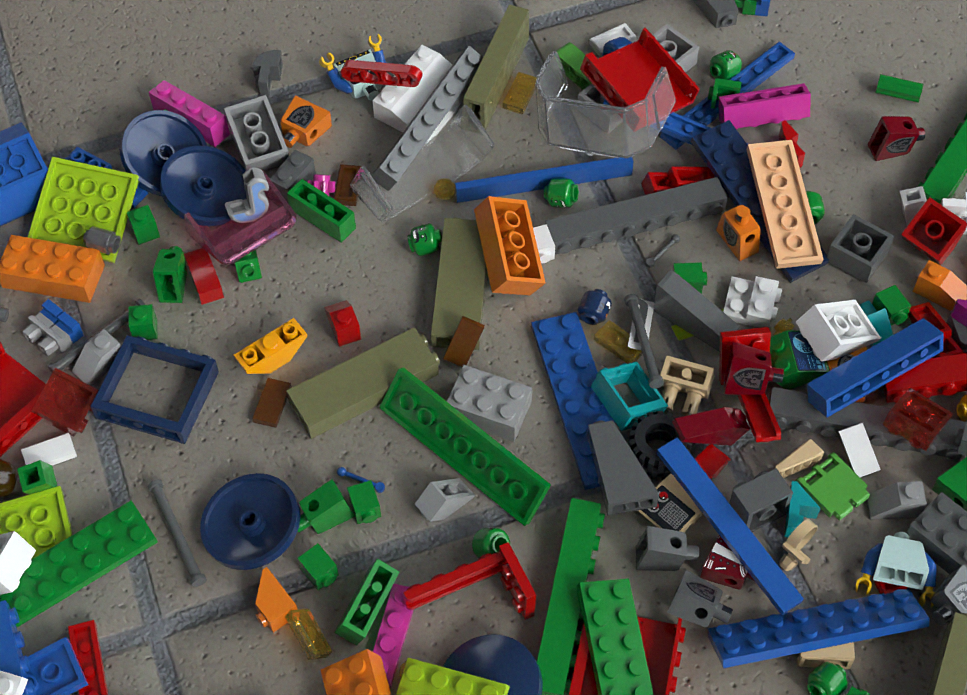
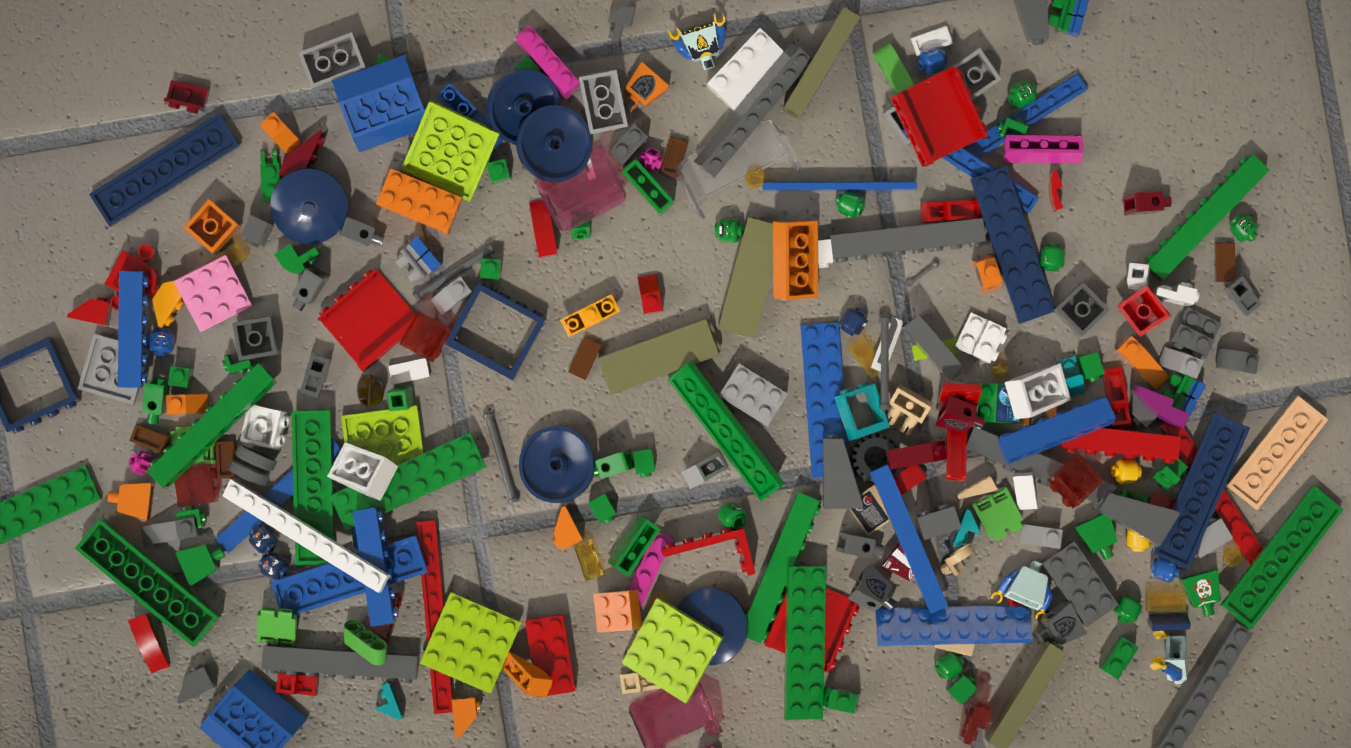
camera: 10 degrees right, 30 degrees up
(102, 240) = (464, 188): flat silver brick -> none
(170, 264) = (515, 232): green torso -> none
(256, 203) = (591, 175): light grey animal -> none
(379, 487) = (657, 447): blue hinge -> none
(405, 74) = (718, 61): red beam -> none
(463, 341) = (742, 340): reddish brown tile -> none
(520, 93) = (838, 85): clear yellow plate -> none
(596, 126) = (885, 157): clear piece -> none
(692, 274) = (935, 309): green brick -> none
(784, 204) = (1029, 260): light nougat plate -> none
(899, 88) = (1167, 146): green axle -> none

